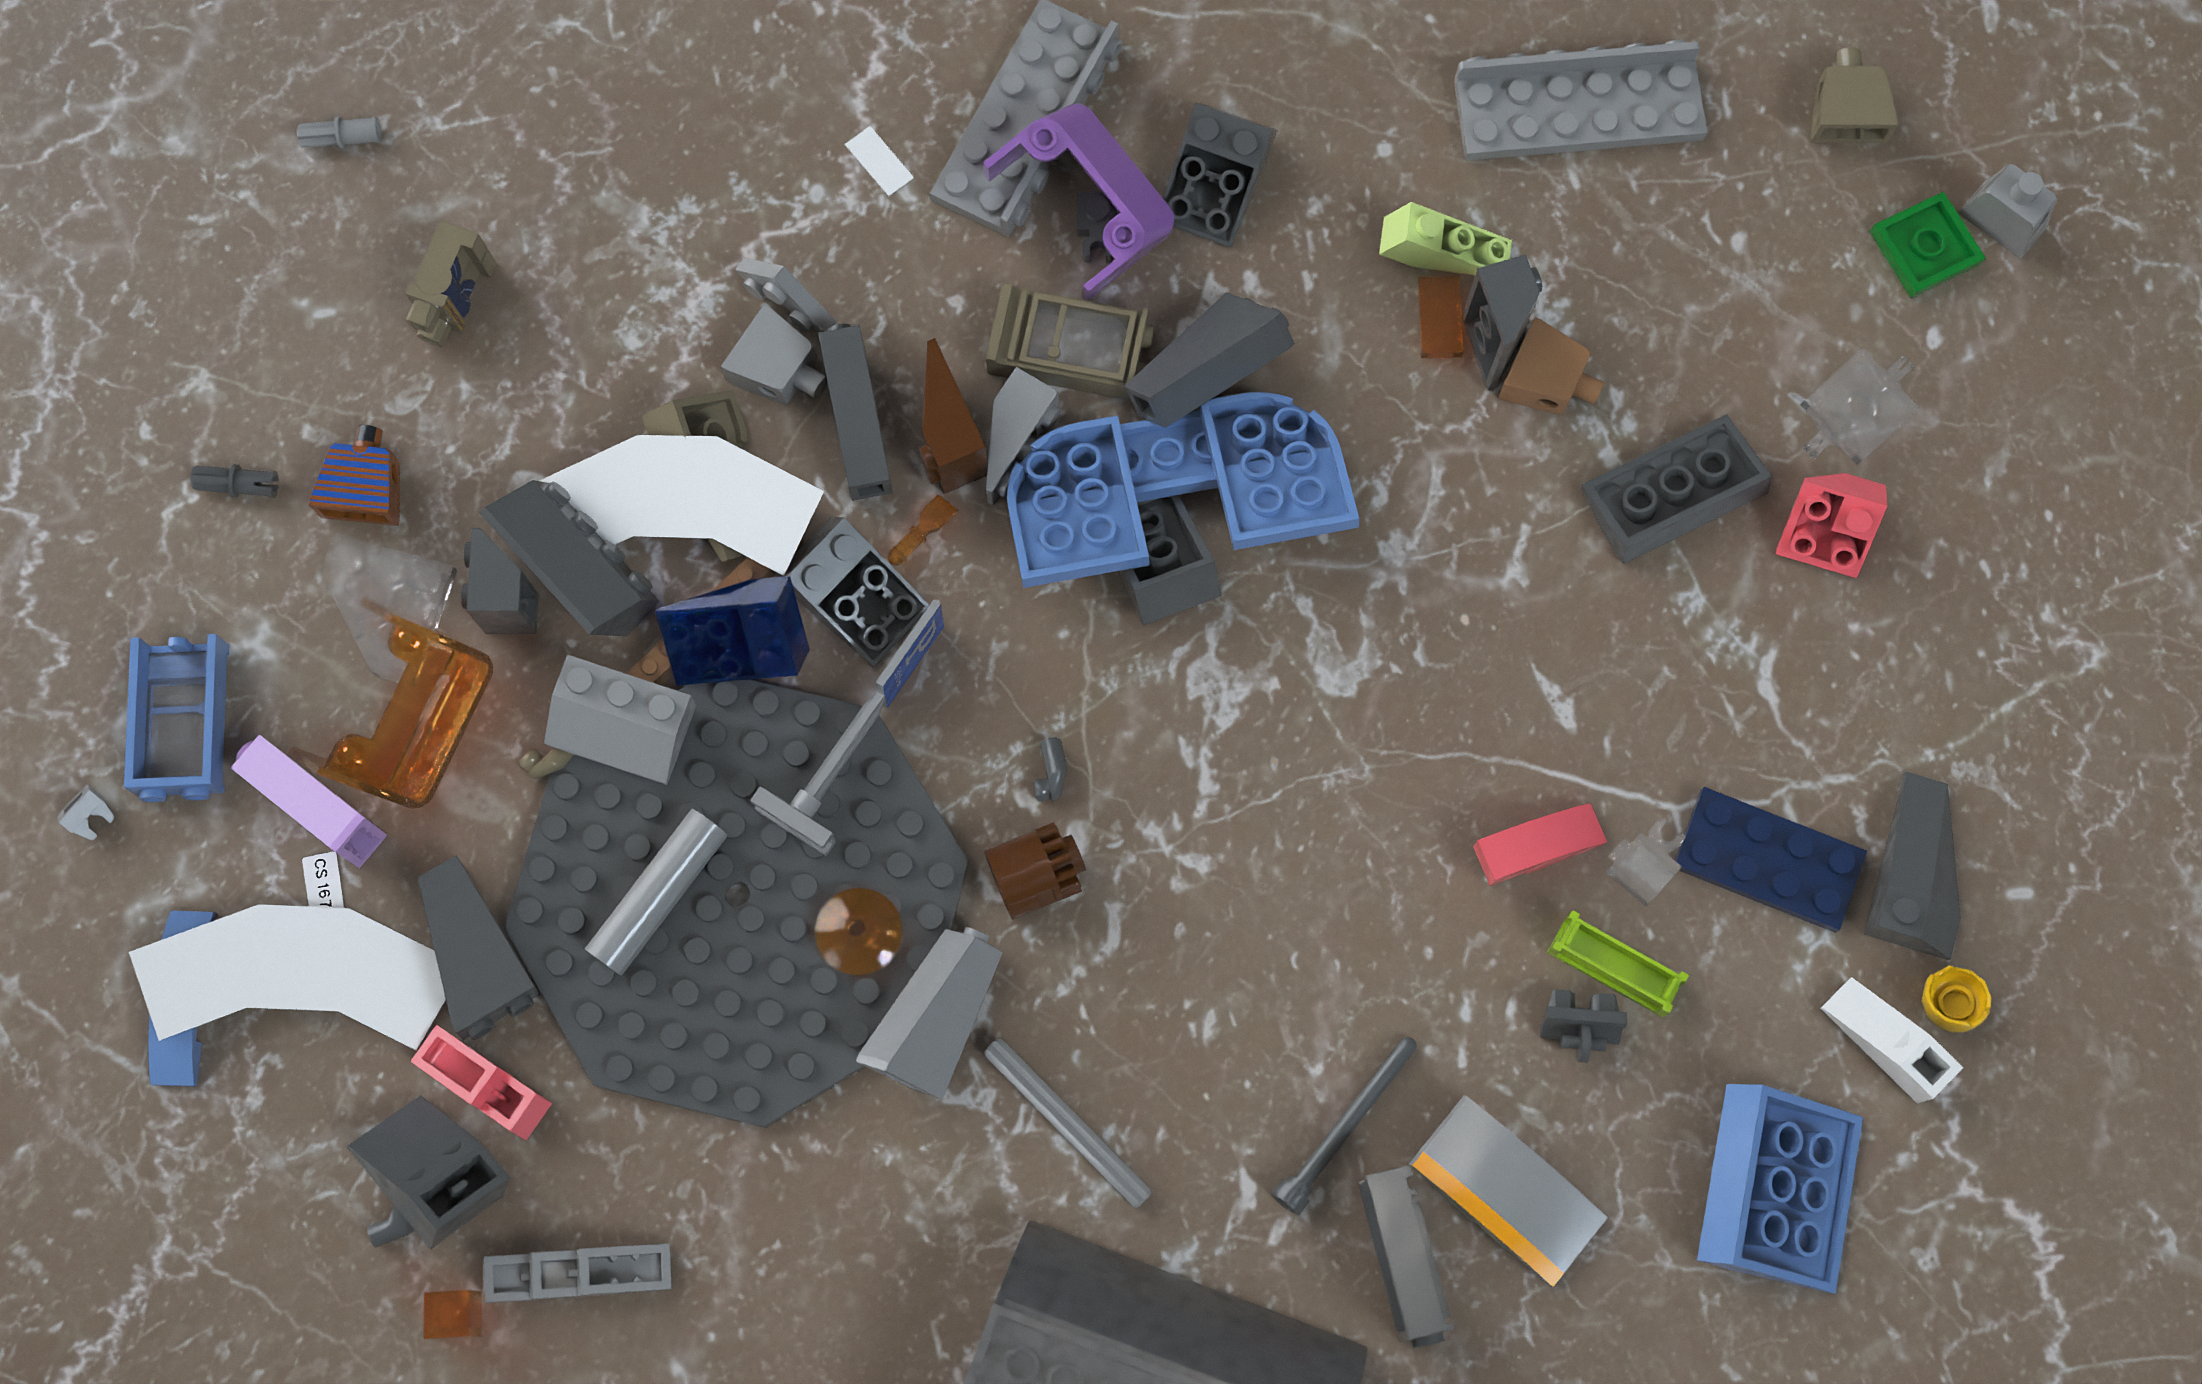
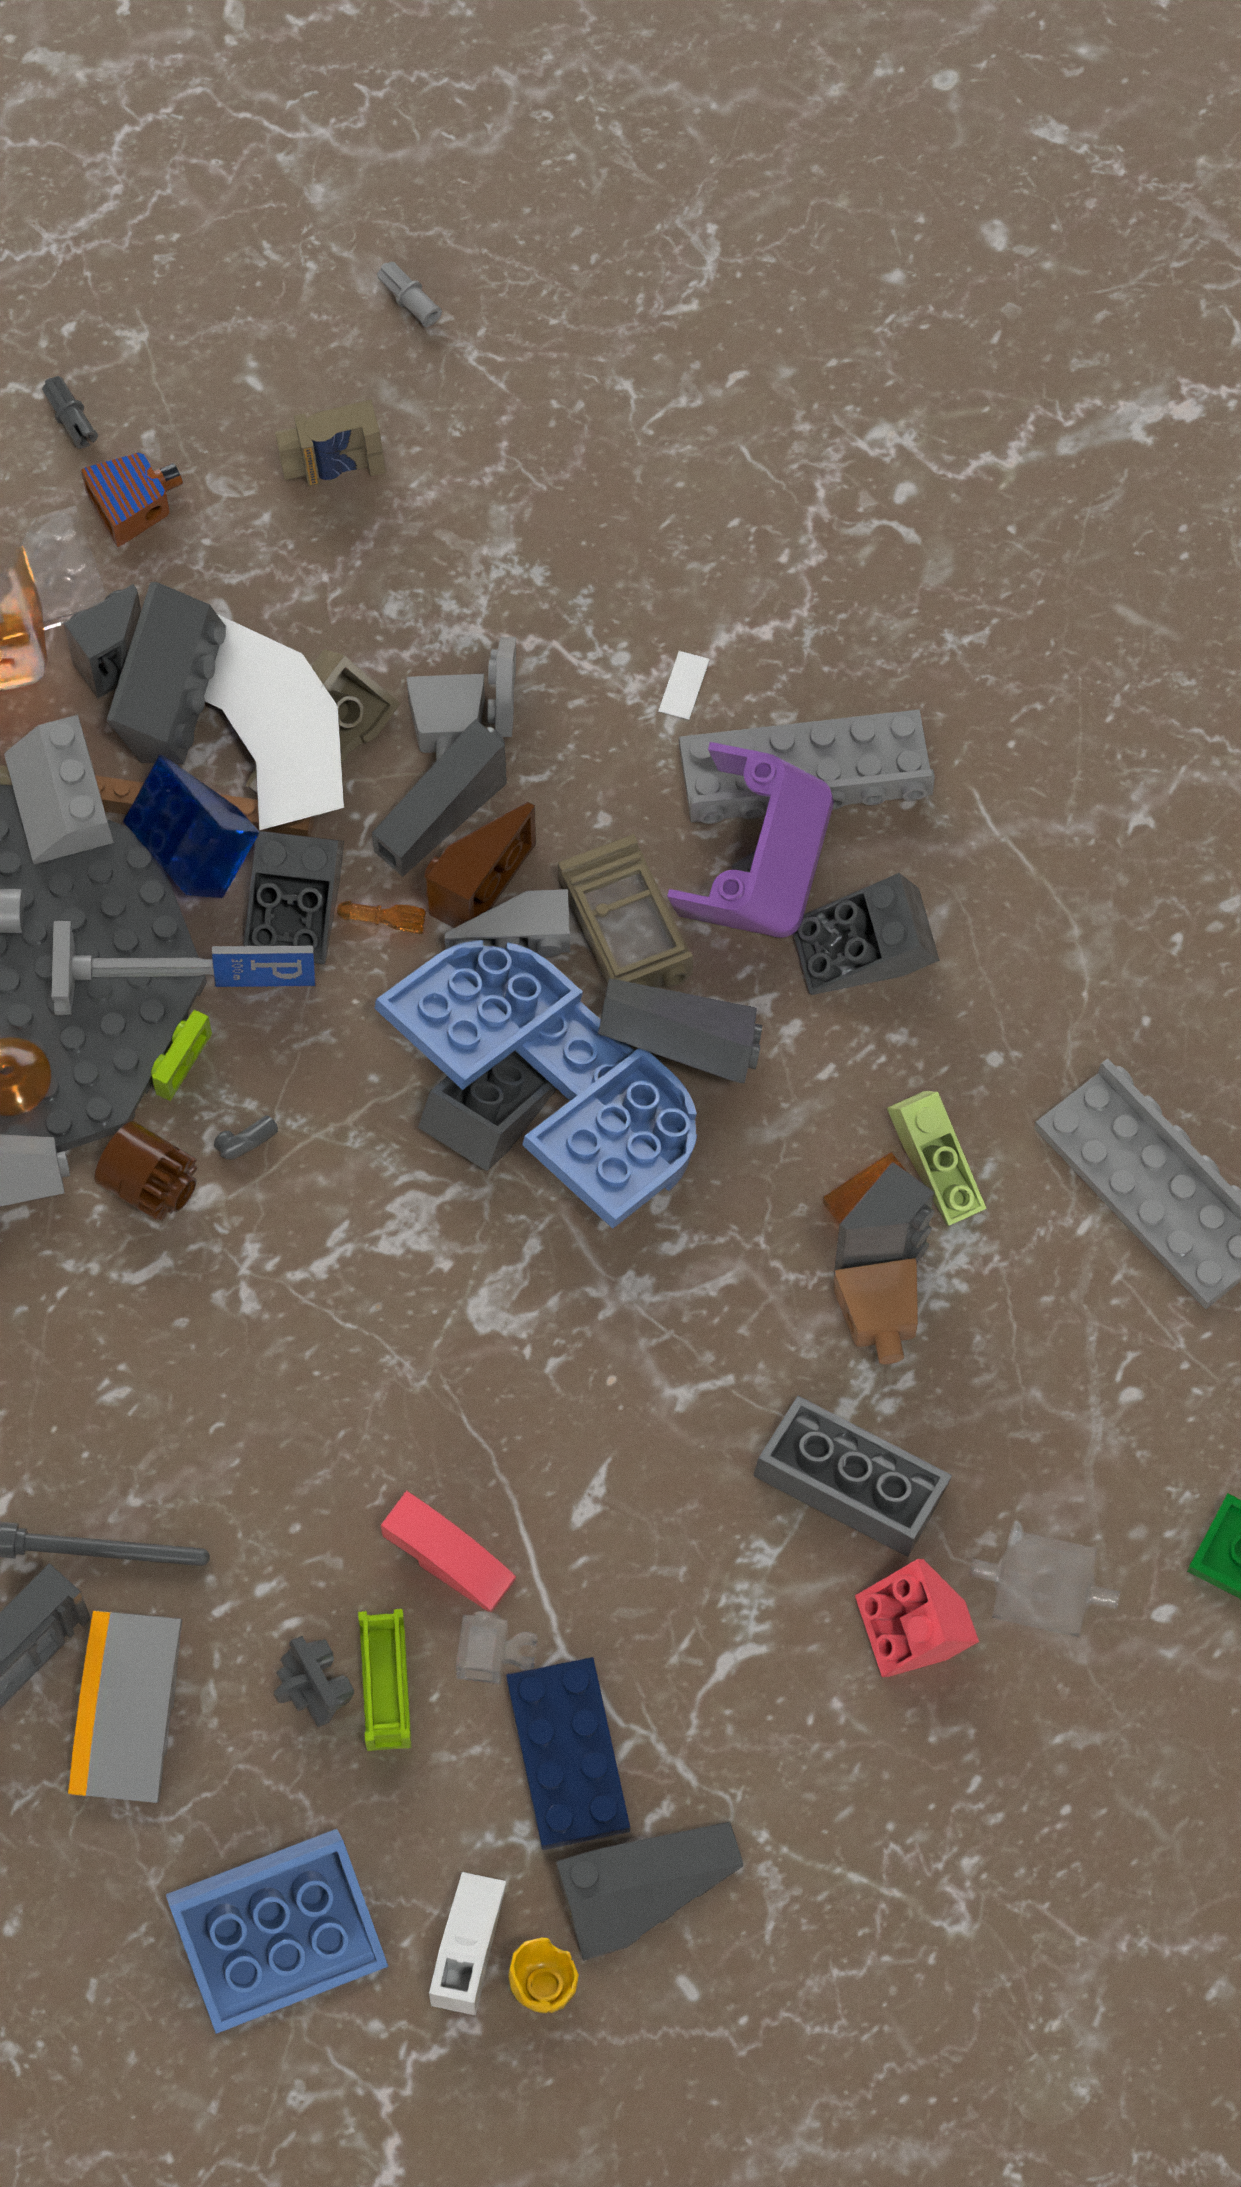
camera: 55 degrees right, 10 degrees down
(927, 759) = (187, 1044): none -> lime plate

